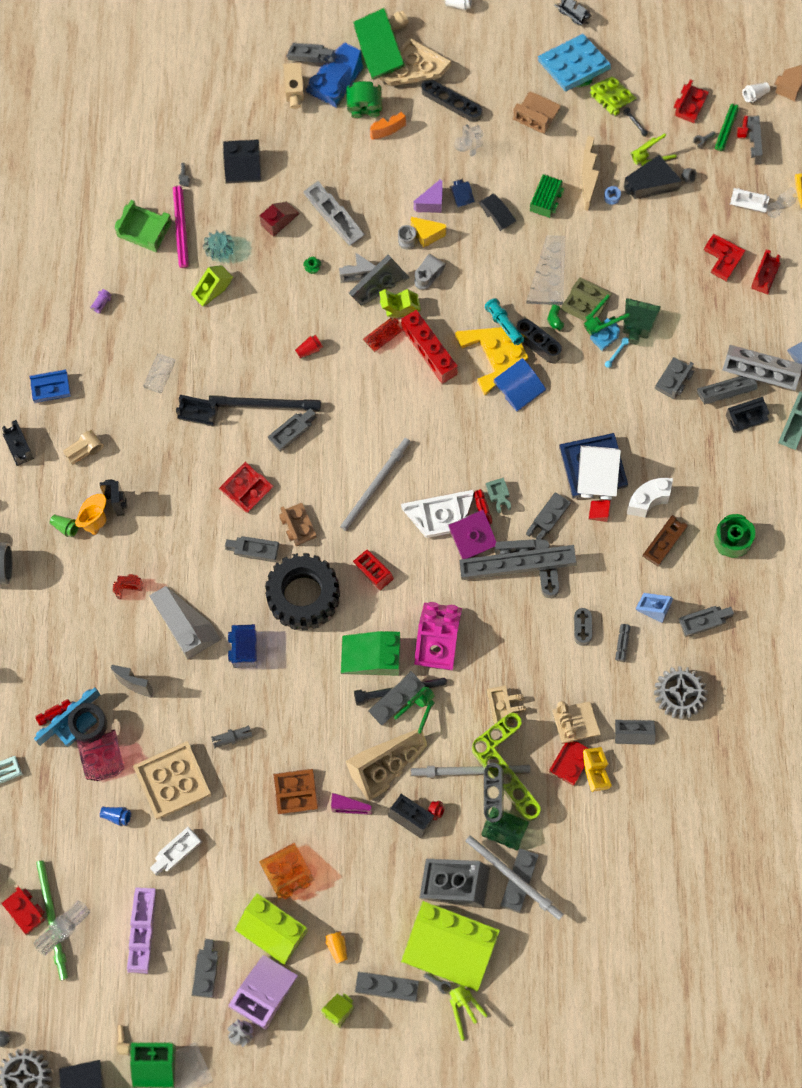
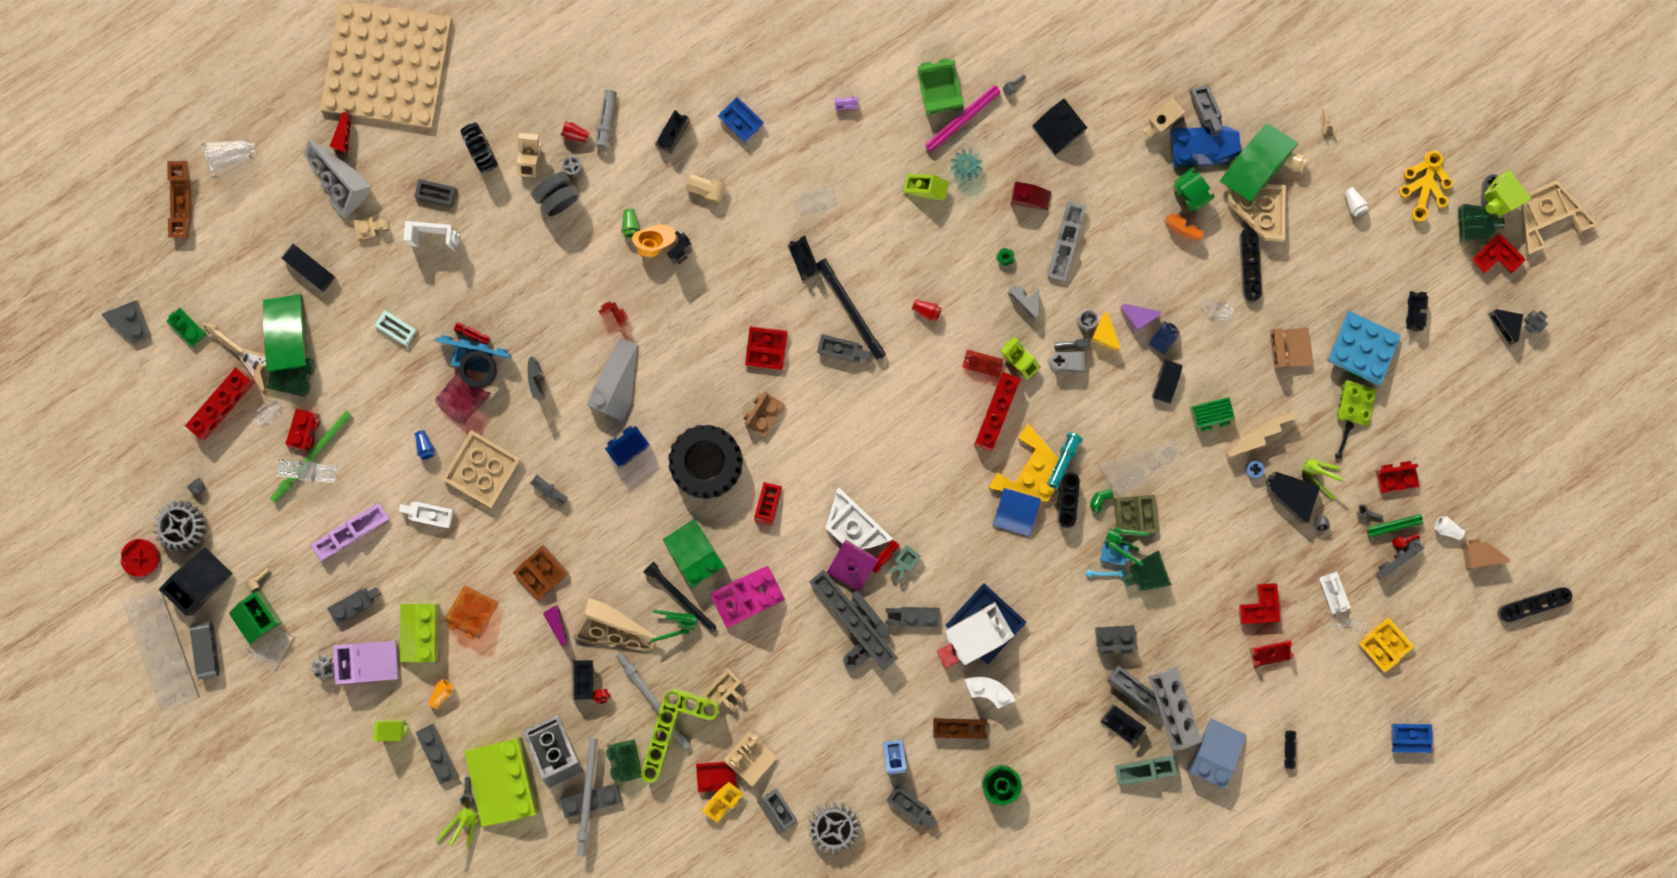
camera: 55 degrees right, 15 degrees up
(253, 548) = (717, 394): dark grey hinge -> none
(378, 279) = (1033, 326): dark grey wing -> none
(396, 455) = (881, 452): light grey bar -> none
(396, 698) = (670, 600): dark grey plate -> none
(421, 254) = (1079, 344): none -> dark grey bar
(497, 802) = (632, 740): dark grey beam -> none
(578, 626) = (840, 713): dark grey beam -> none
(622, 644) = (846, 751): dark grey axle -> none

